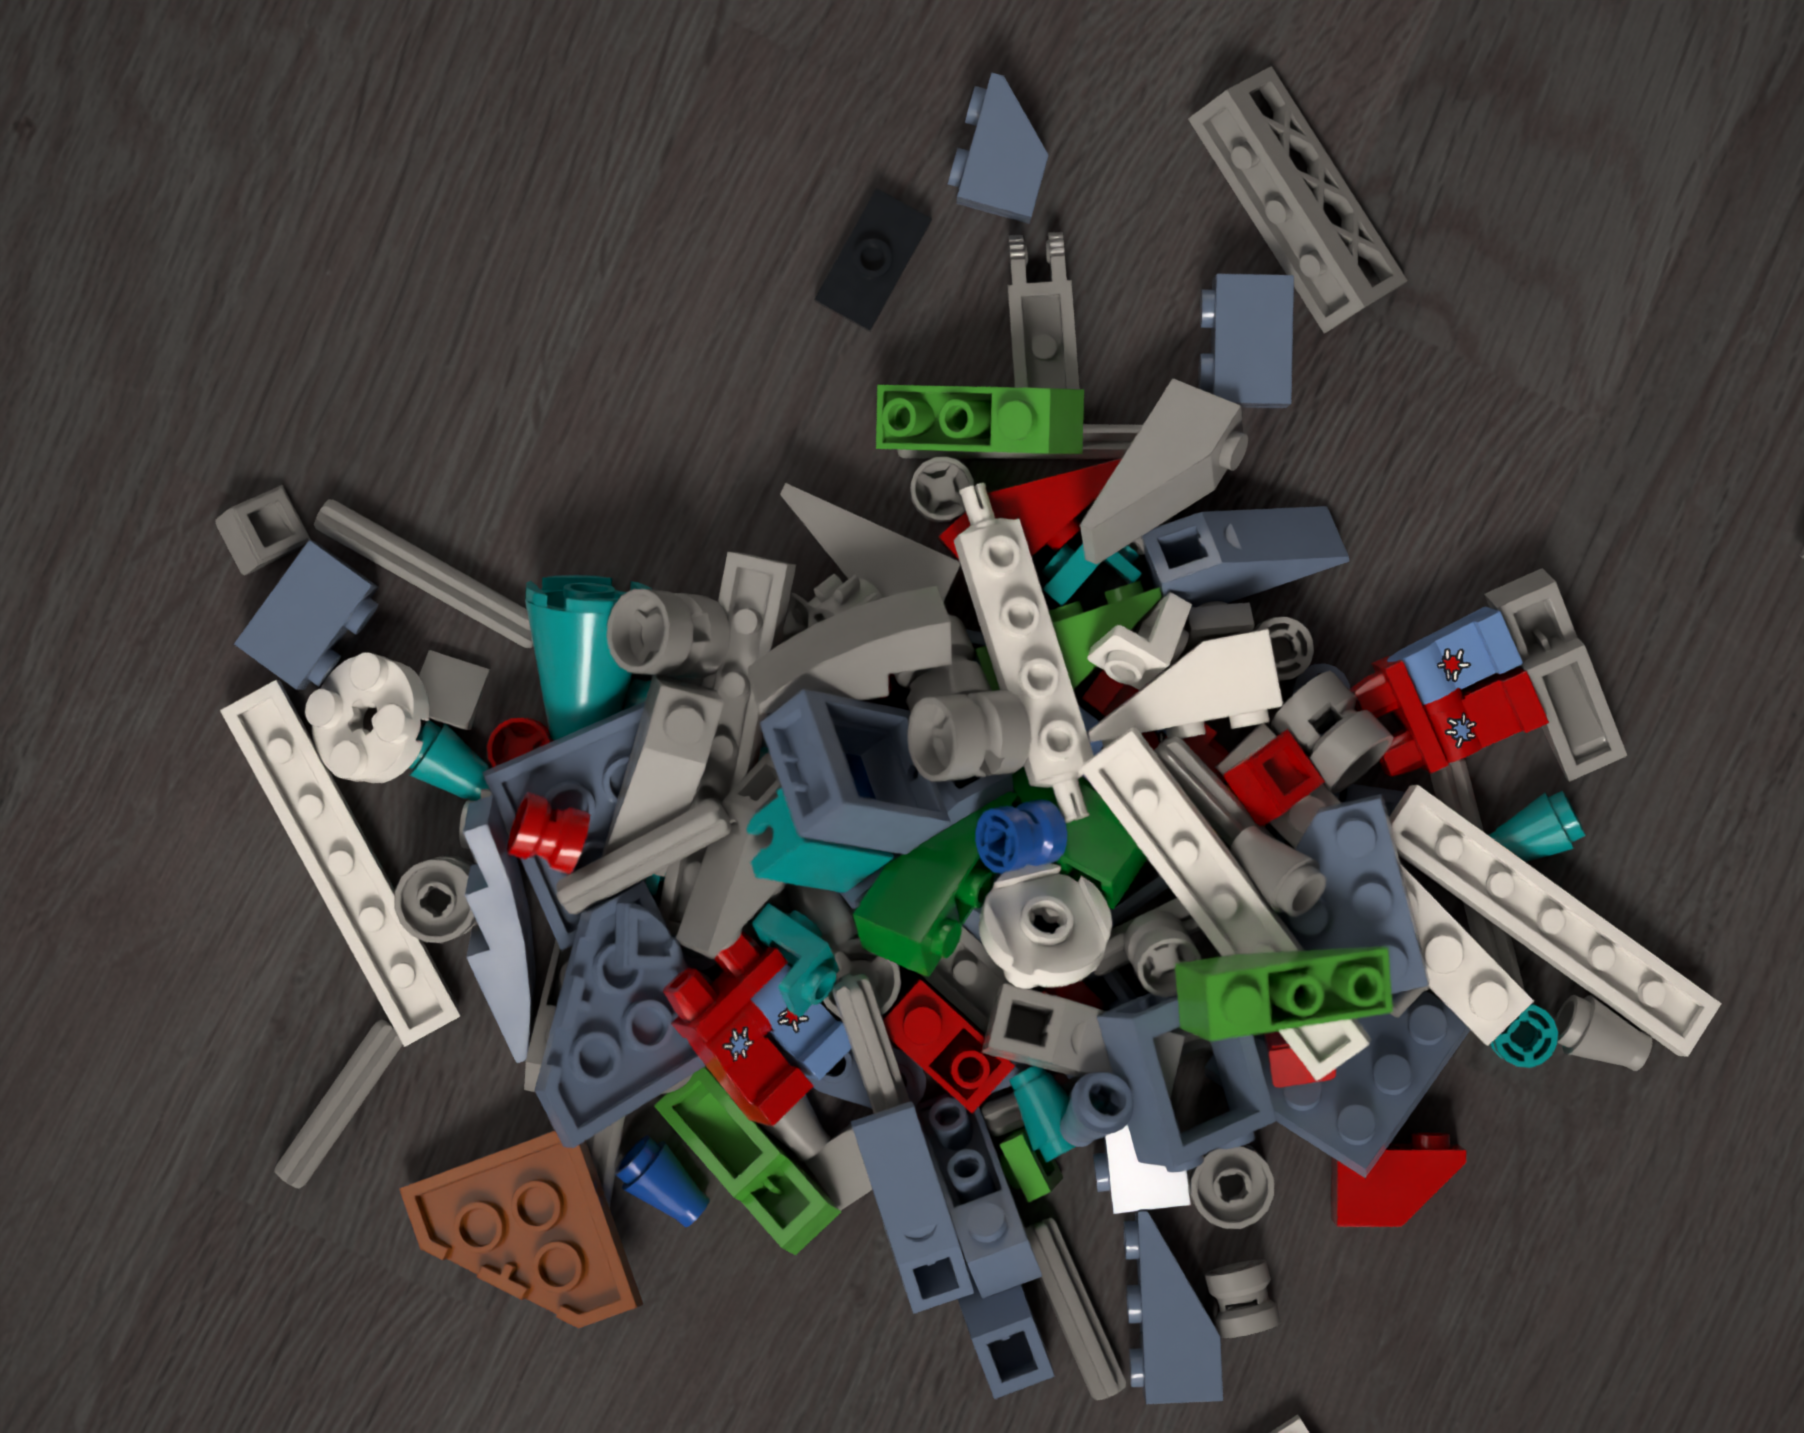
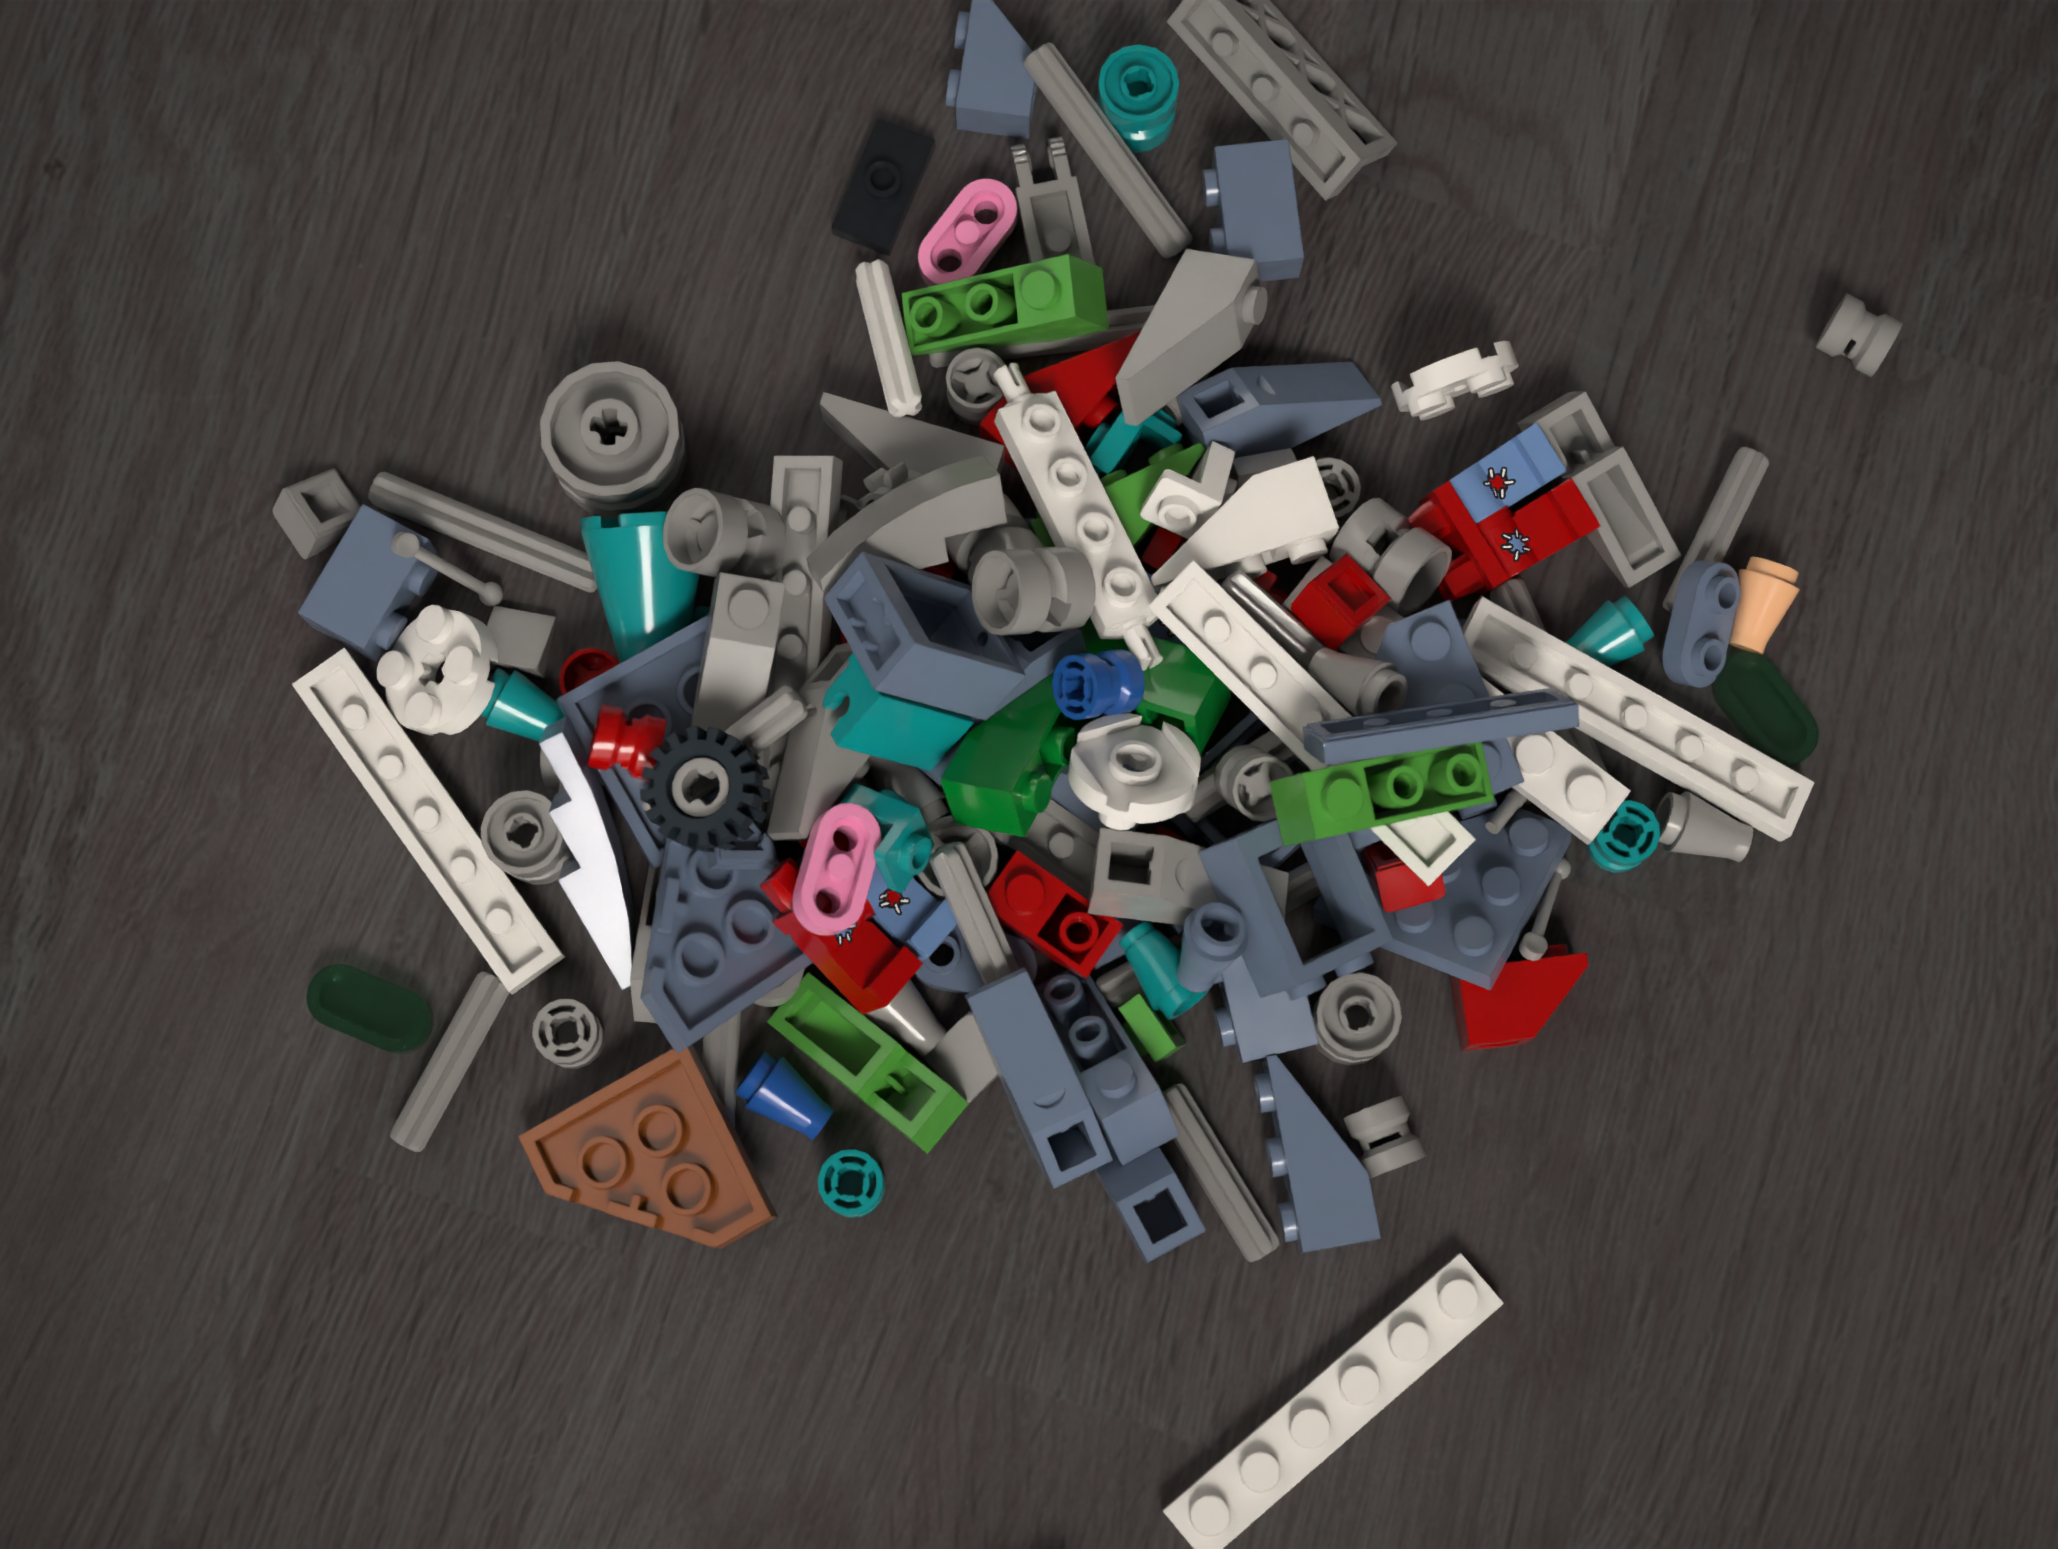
camera: 10 degrees left, 10 degrees down
(266, 1041) = (370, 1009): none -> clear green tile
(351, 594) = (408, 546): none -> light grey hinge
(466, 1086) = (578, 1040): none -> light grey wheel
(531, 492) = (648, 448): none -> light grey wheel
(628, 865) = (696, 821): none -> black bush
(717, 1266) = (858, 1192): none -> teal wheel
(743, 997) = (837, 873): none -> bright pink plate
(858, 431) = (888, 339): none -> white axle
(952, 327) = (965, 238): none -> bright pink plate
(1106, 260) = (1107, 150): none -> light grey axle
(1145, 206) = (1139, 95): none -> teal wheel
(1350, 933) = (1440, 726): none -> sand blue tile
(1415, 1135) = (1533, 943): none -> light grey hinge
(1447, 547) = (1455, 376): none -> white plate
(1635, 829) = (1701, 623): none -> sand blue plate
(1666, 734) = (1724, 513): none -> light grey axle
(1686, 920) = (1765, 709): none -> clear green tile
(1699, 814) = (1765, 598): none -> light nougat cone

